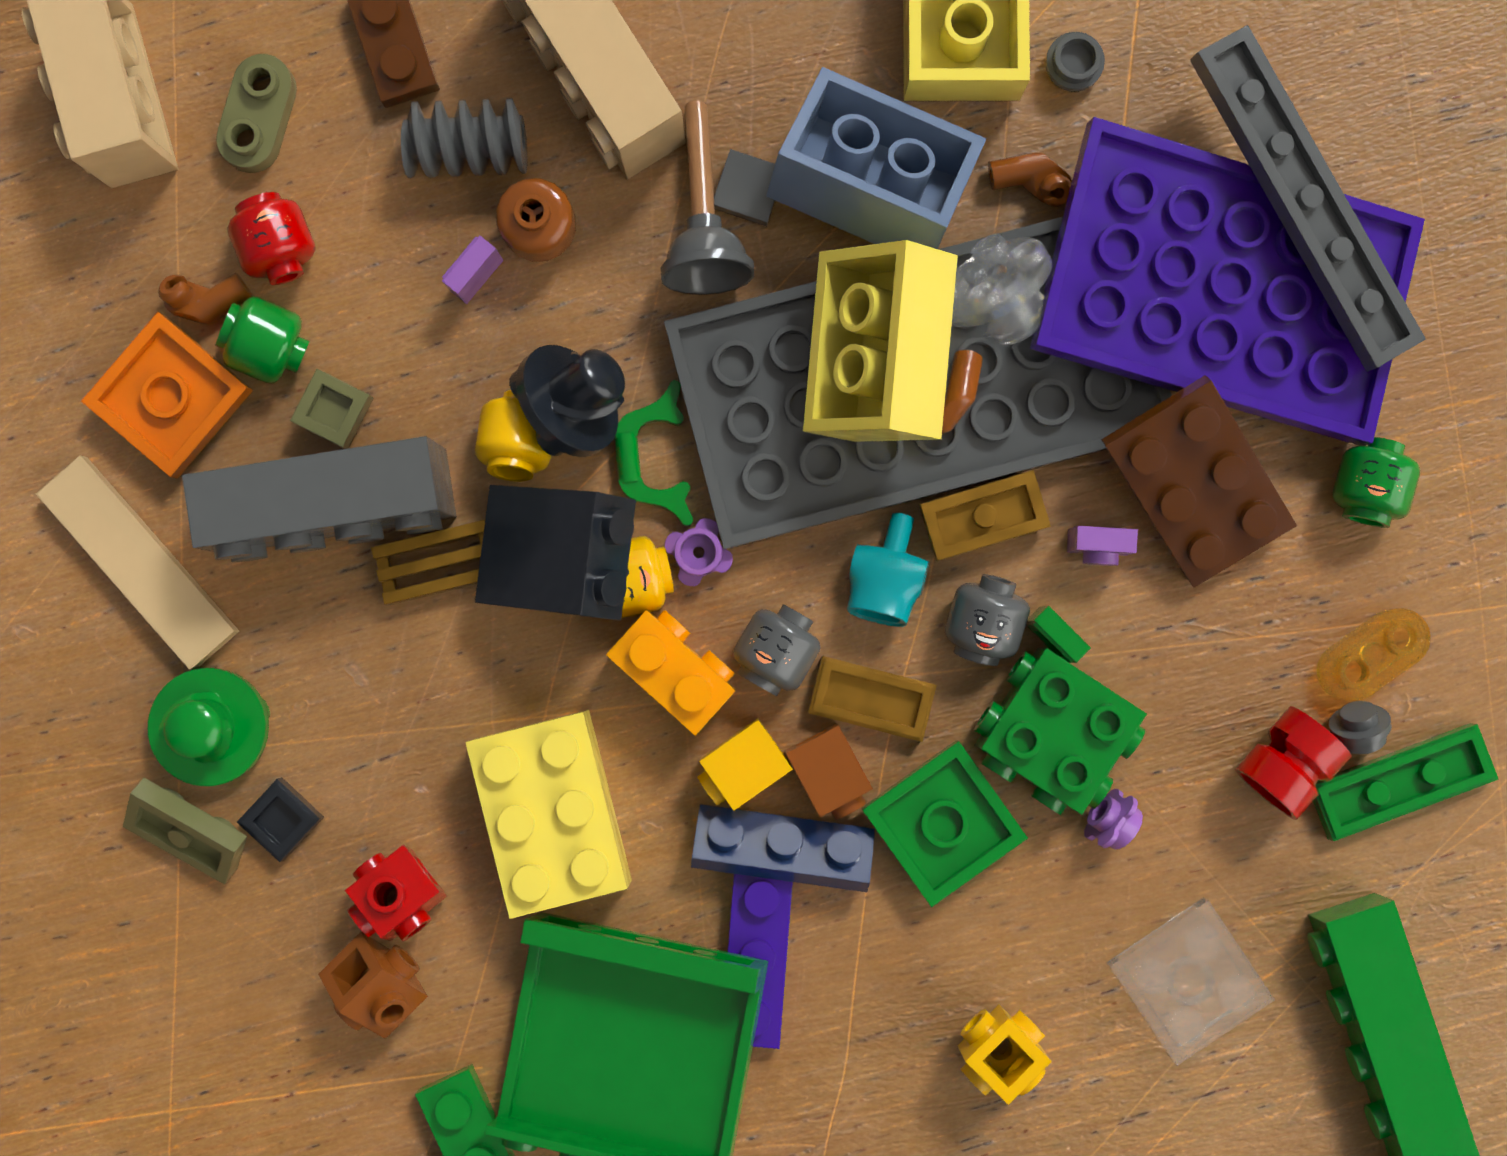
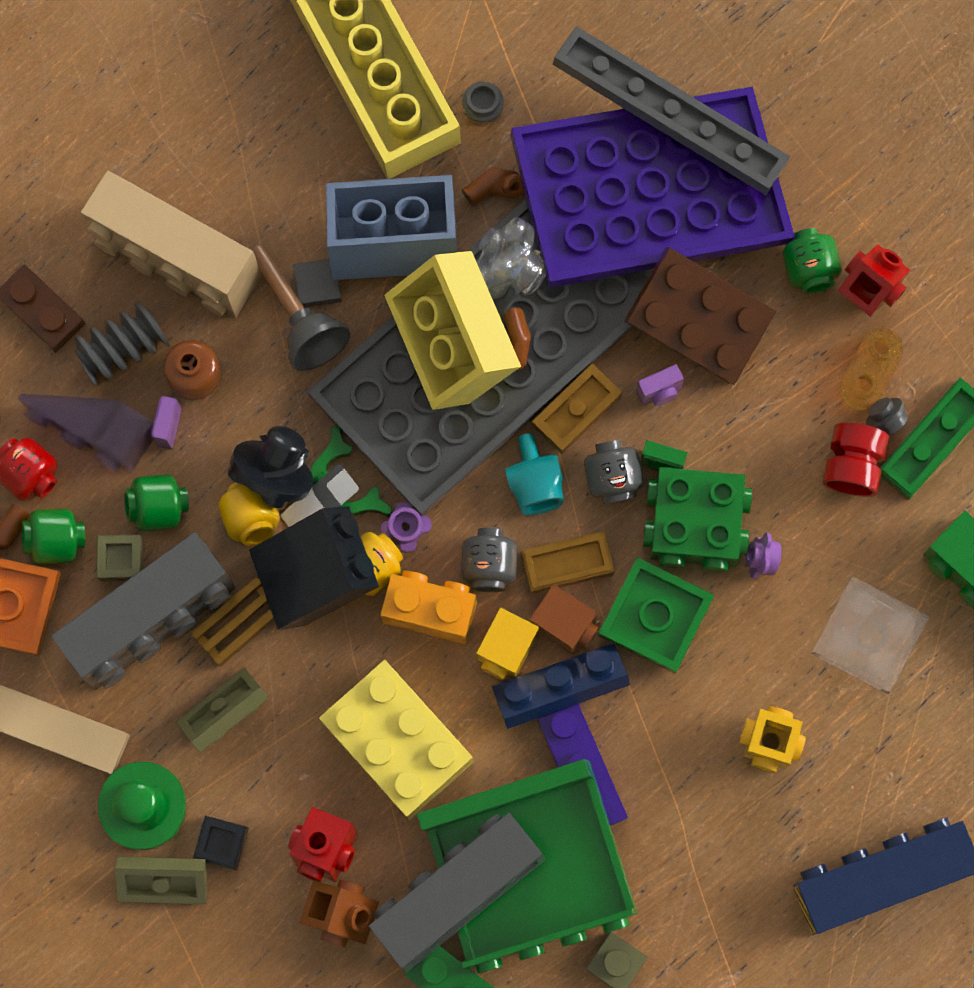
camera: 25 degrees left, 10 degrees down
(360, 662) = (222, 710): none -> olive plate
(393, 234) = (101, 424): none -> clear purple slope
(408, 364) = (155, 502): none -> green head
(522, 1040) = (456, 891): none -> dark grey brick
(614, 467) = (328, 492): none -> white sticker
(1442, 549) = (874, 279): none -> red brick

